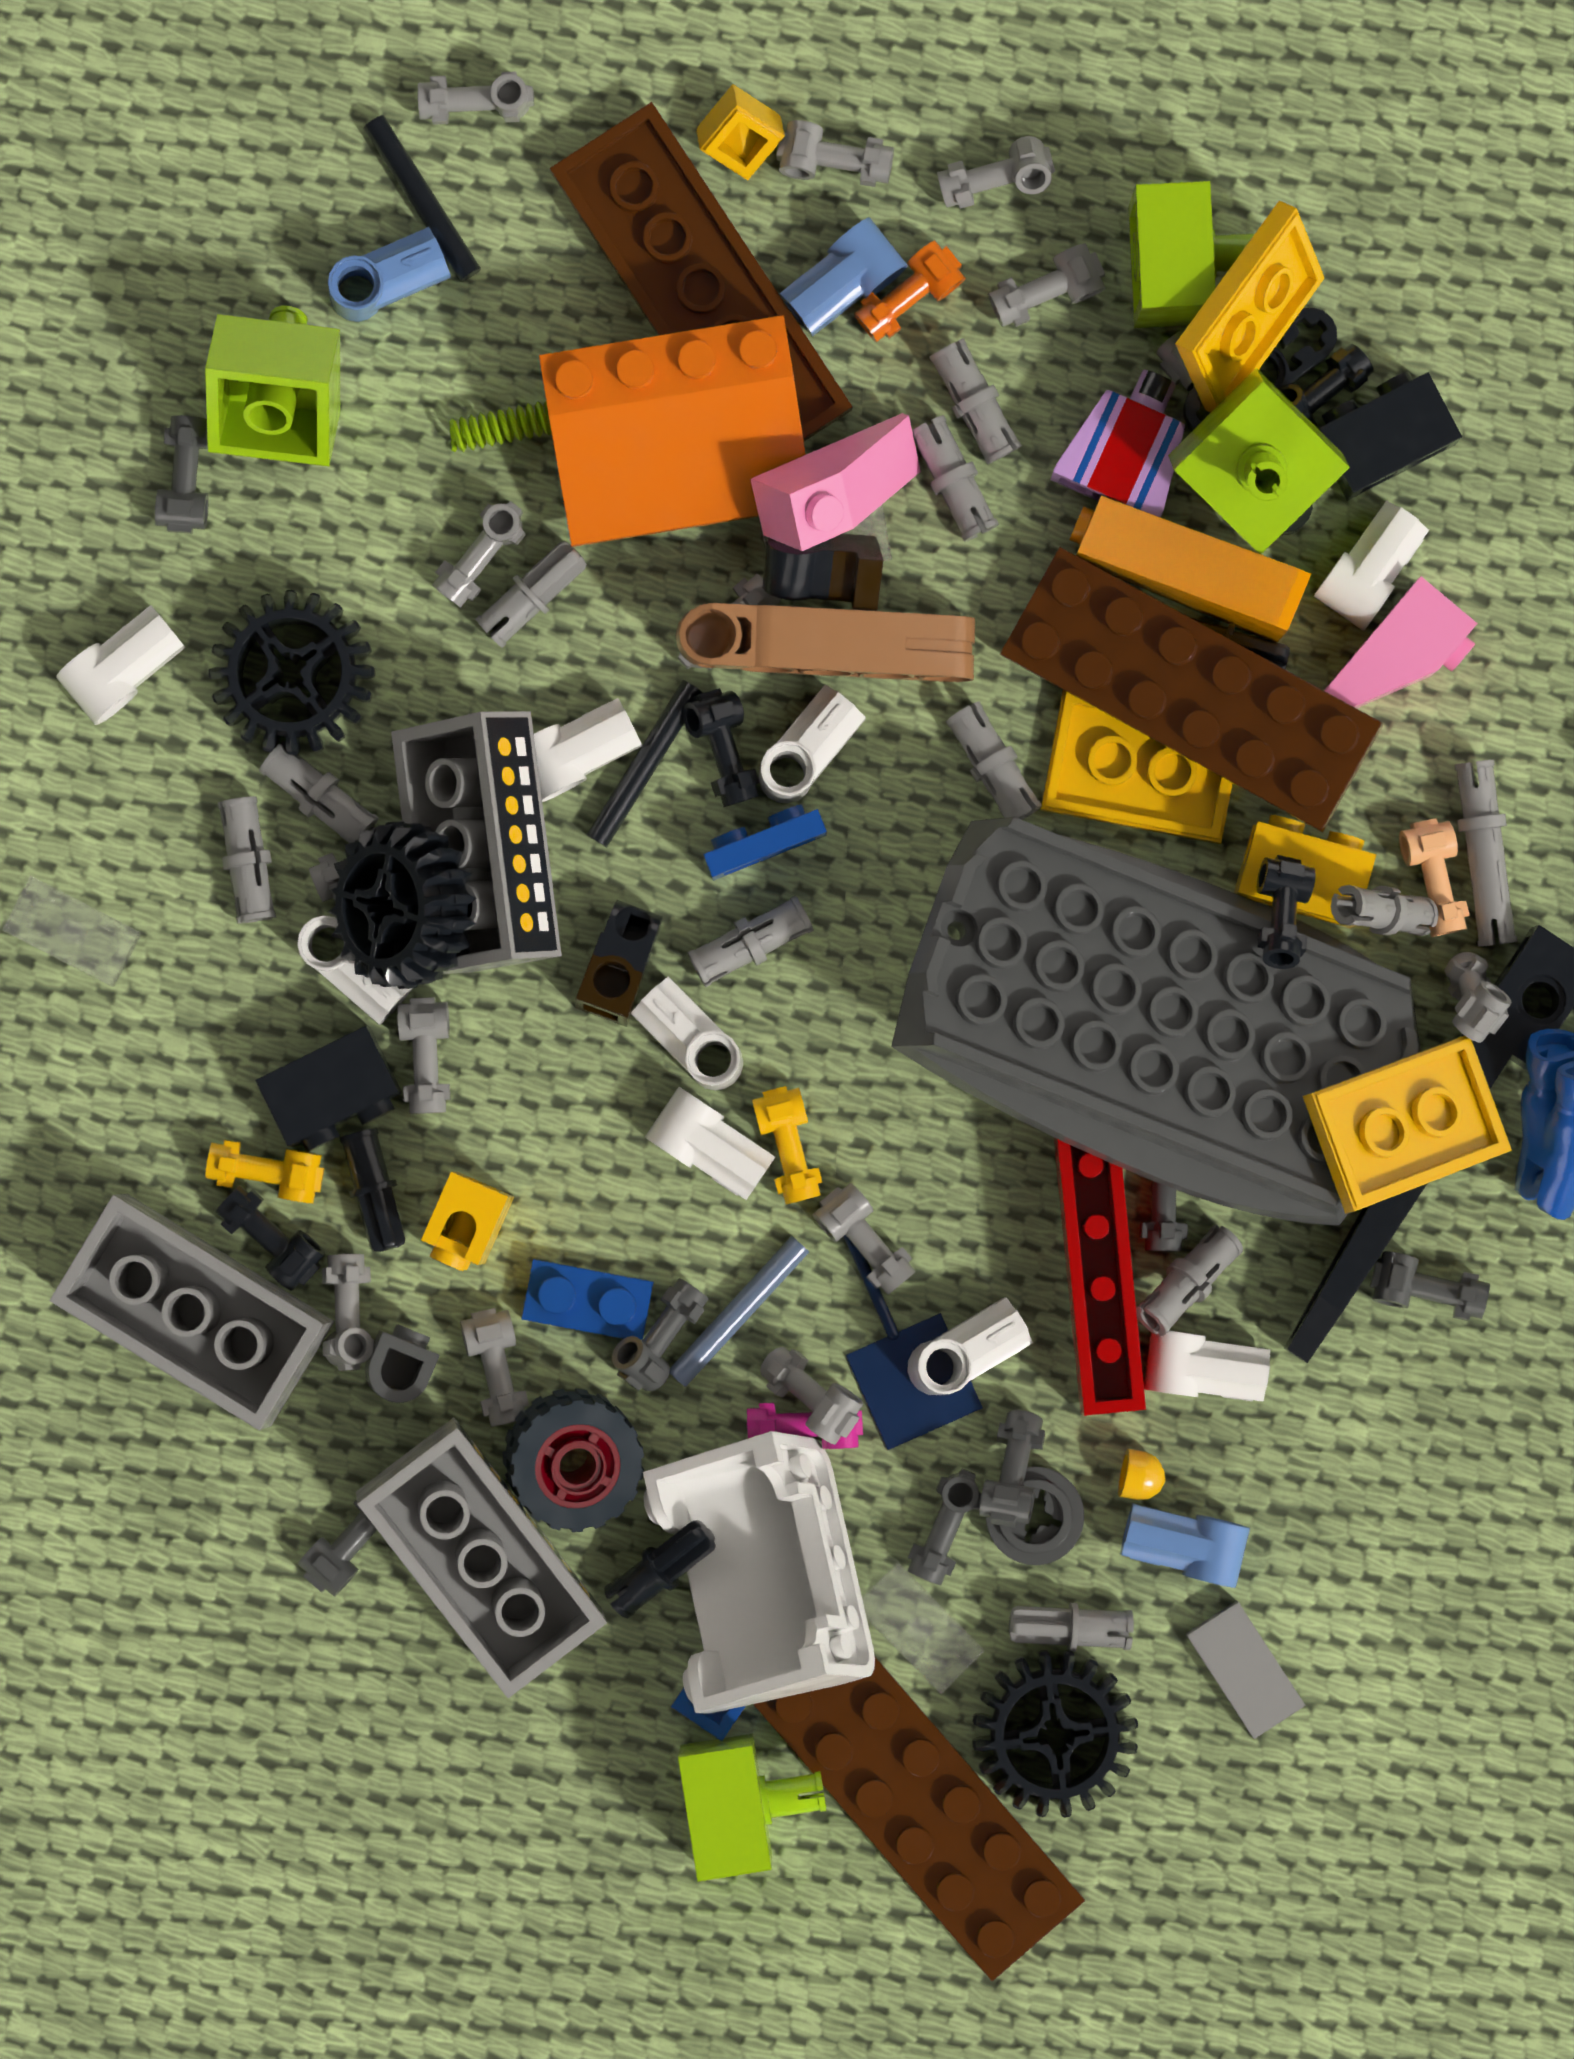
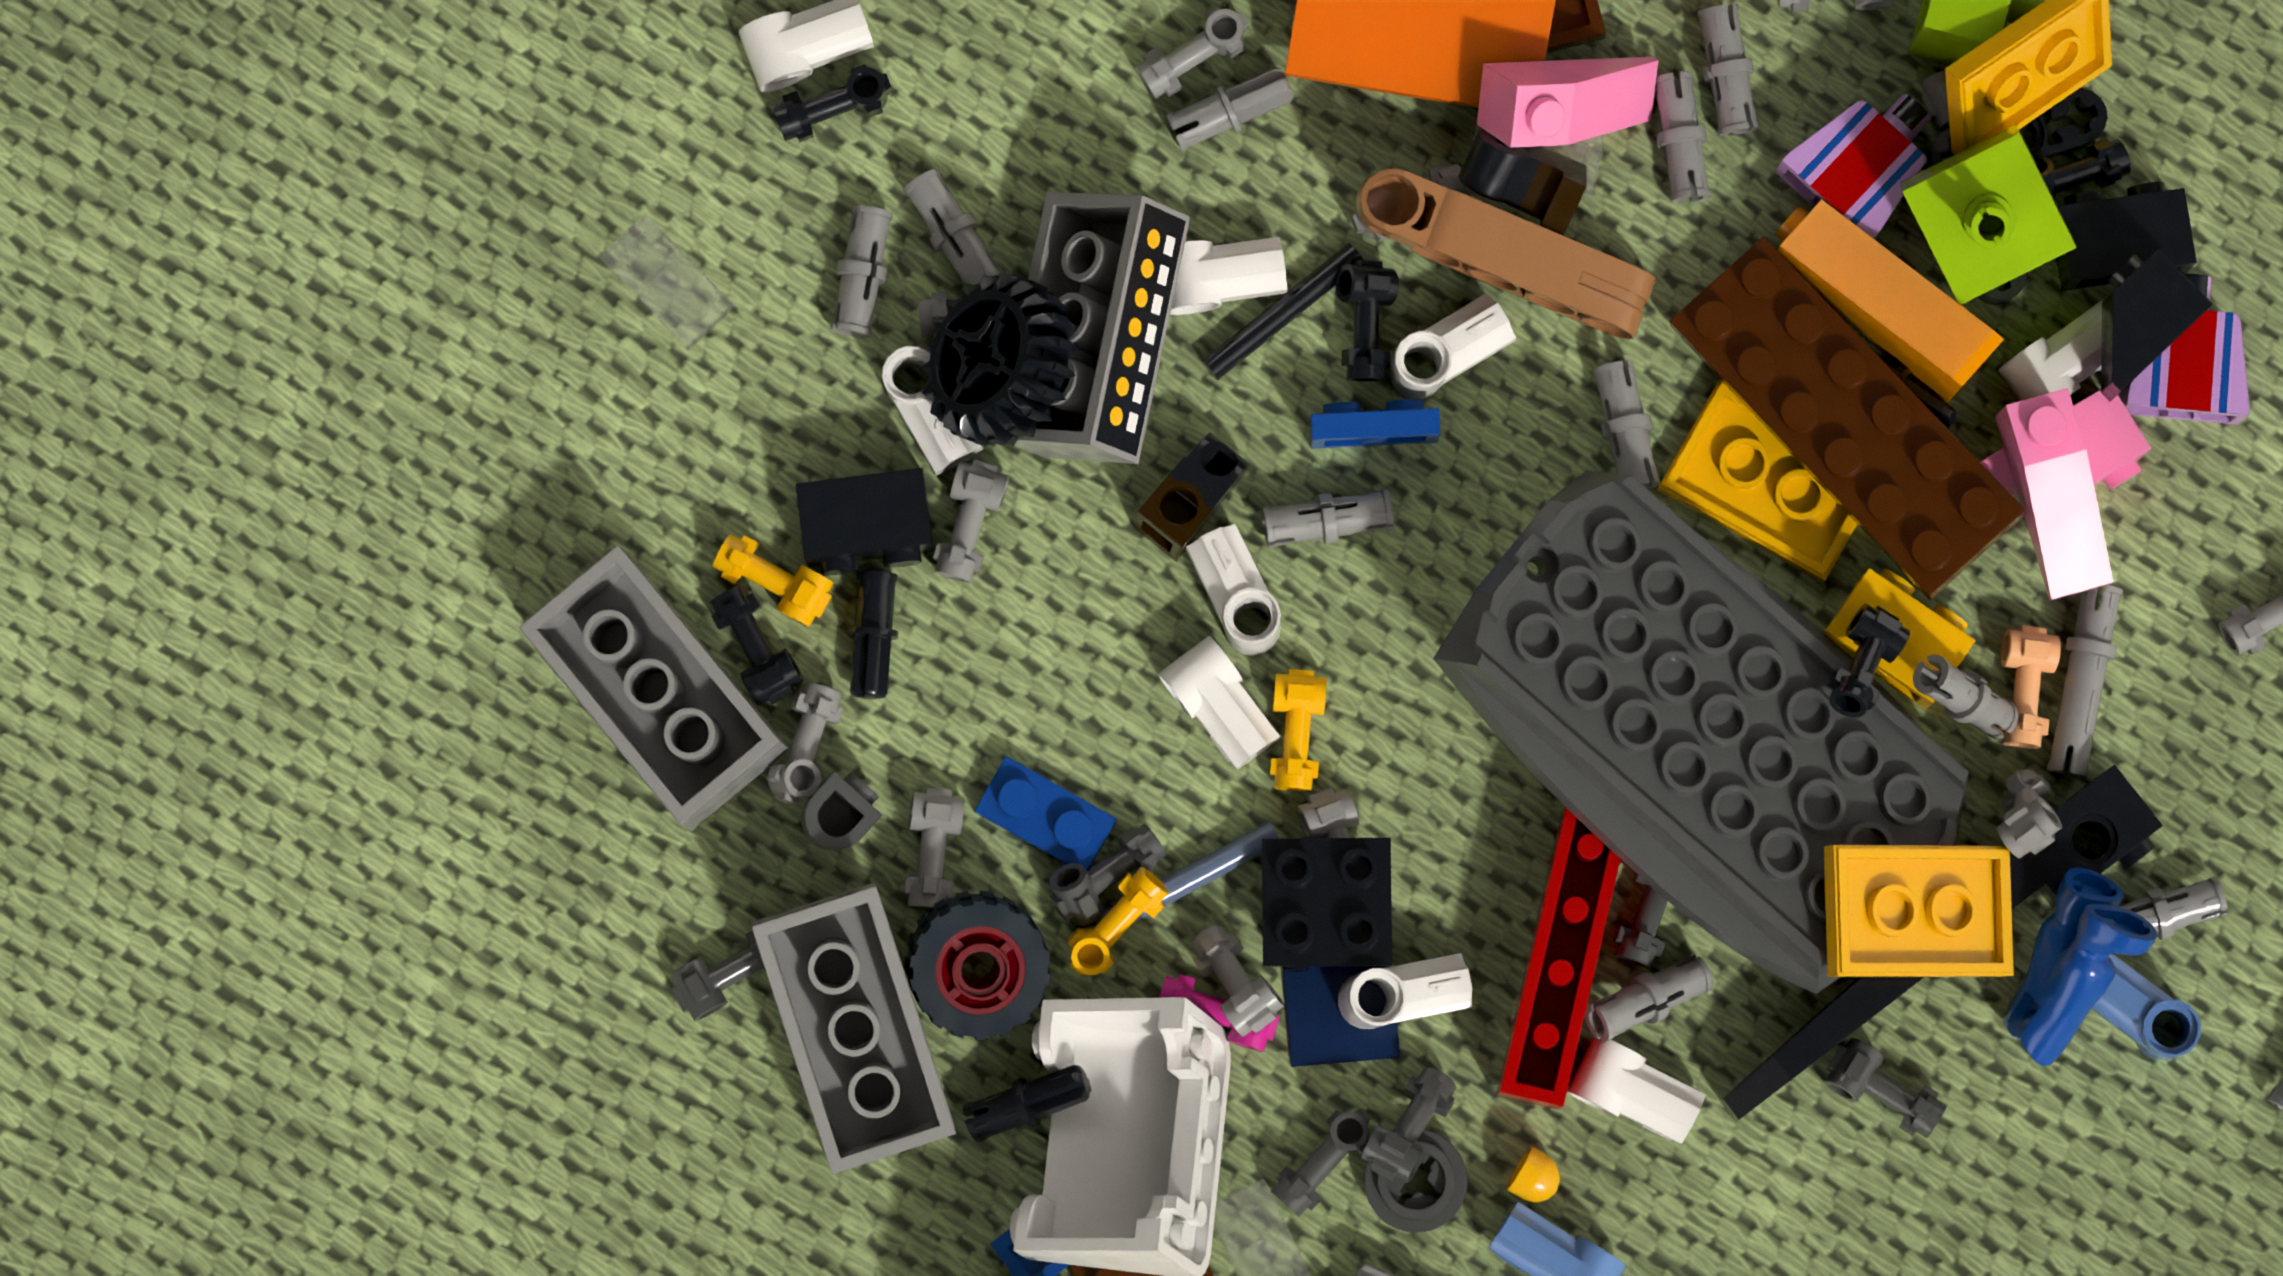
camera: 20 degrees right, 5 degrees down
(190, 692) = (864, 91): none -> black bar
(313, 654) = (997, 95): black gear -> none
(466, 1221) = (954, 692): yellow brick -> none
(671, 1402) = (1093, 944): none -> yellow bar
(869, 1295) = (1326, 902): none -> black hinge
(1405, 696) = (2056, 492): none -> slope
(1432, 508) = (2144, 317): none -> black slope
(1482, 527) = (2197, 374): none -> torso

